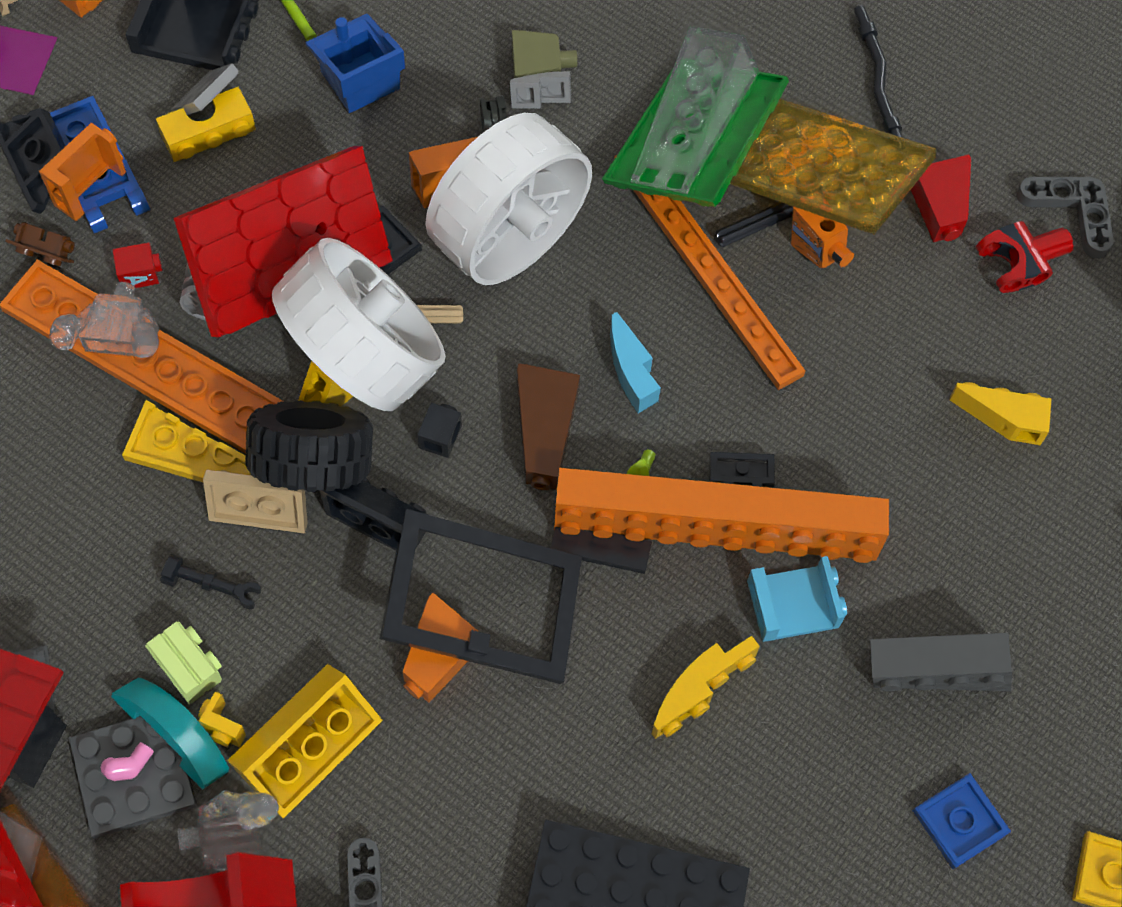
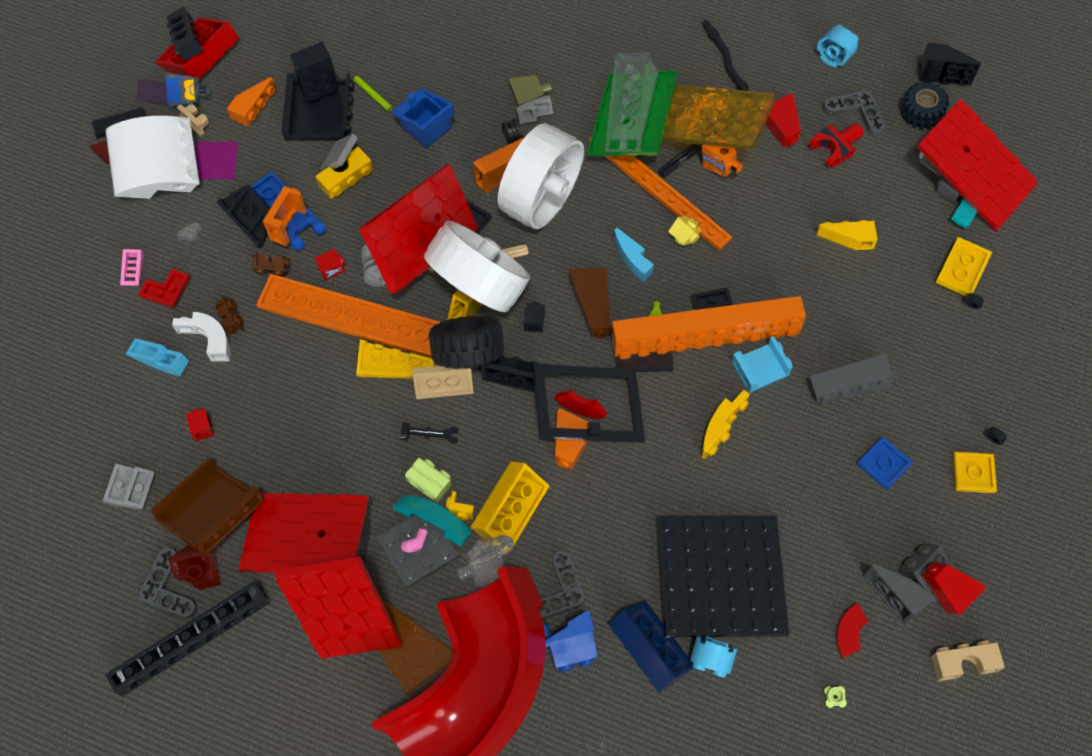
camera: 10 degrees left, 0 degrees up
(110, 326) = (329, 301): clear torso -> none
(472, 597) = (580, 405): none -> red tile
(729, 342) = (685, 230): none -> light yellow brick
(1067, 94) = (837, 46): none -> medium azure brick

